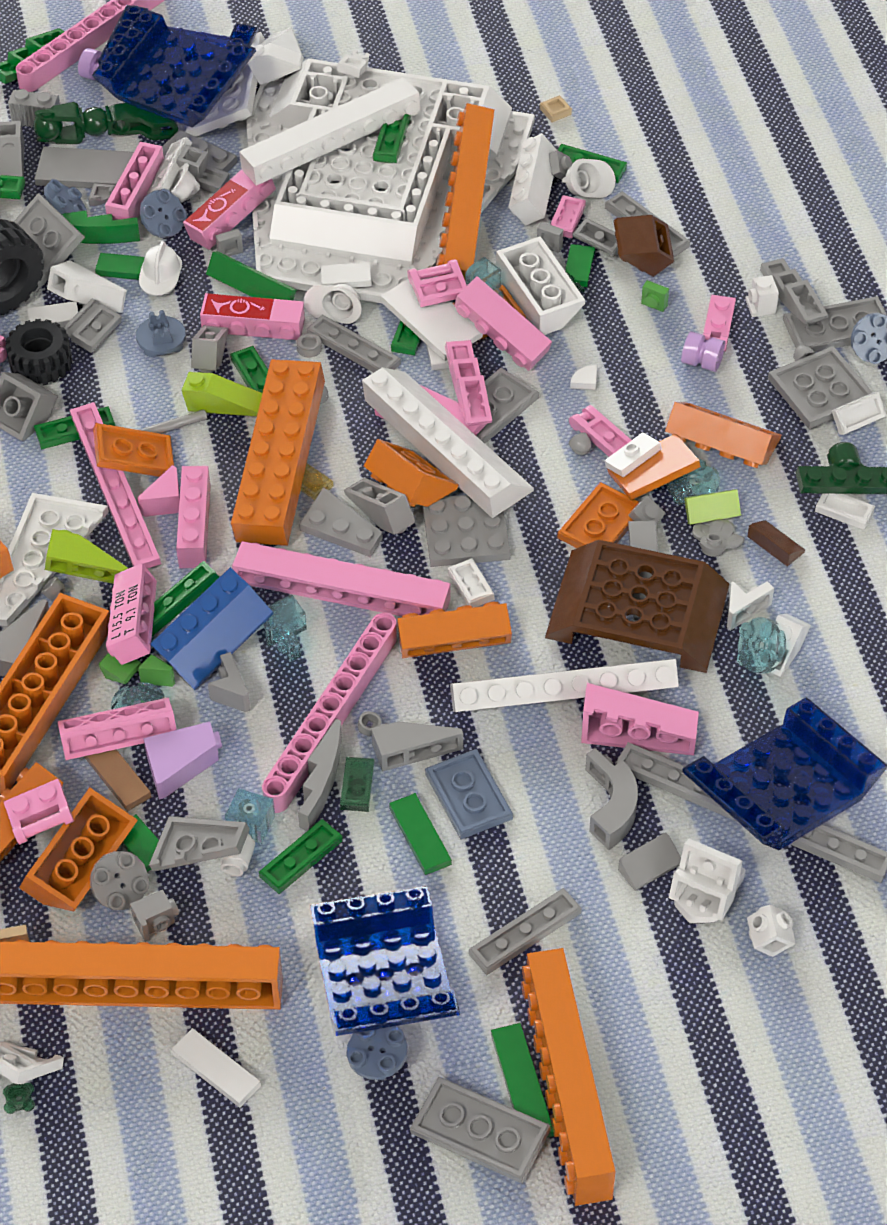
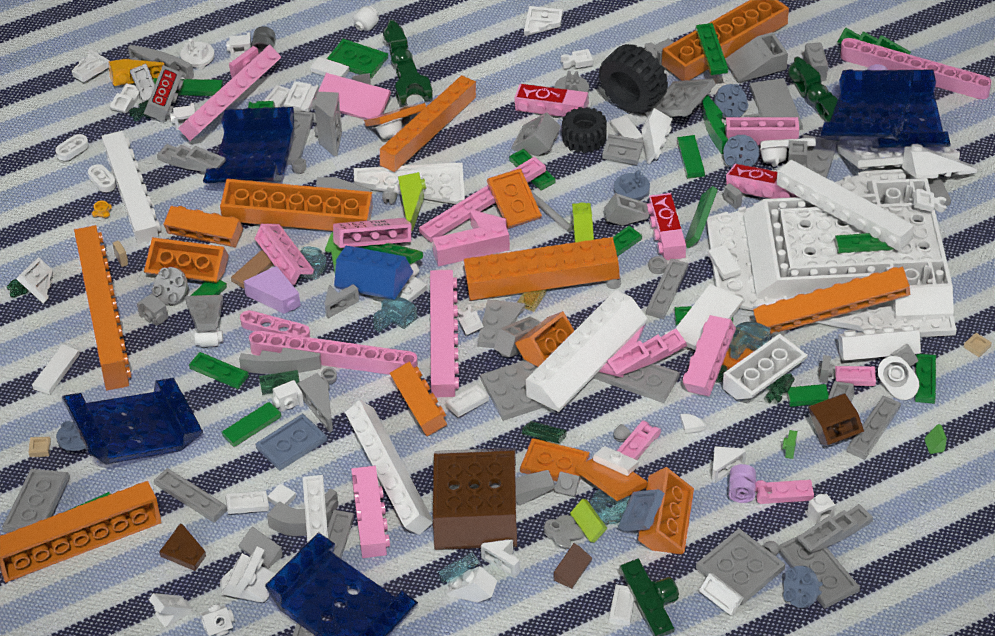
camera: 75 degrees right, 5 degrees down
(36, 805) = (202, 225): bright pink plate -> none
(160, 270) = (691, 167): white piece -> none
(241, 769) = (250, 318): none -> bright pink beam
(254, 810) = (237, 335): clear light blue piece -> none
(331, 547) = (470, 320): none -> white plate
(336, 302) = (699, 265): white piece -> none
(365, 1113) = (39, 446): none -> tan tile
(391, 777) = (287, 396): none -> white brick
(439, 288) = (722, 307): bright pink plate -> none
(554, 516) = (544, 432): none -> clear green plate
(564, 822) = (282, 494): none -> white tile
(566, 862) = (247, 502): none -> white plate
(621, 955) = (183, 549): none -> reddish brown wing
(623, 775) = (315, 506): none -> white tile
(663, 362) = (724, 460): none -> white slope
(688, 177) = (936, 440): none -> bright green slope
(728, 444) = (641, 510): none -> sand blue plate
(730, 986) = (169, 608): none -> white slope

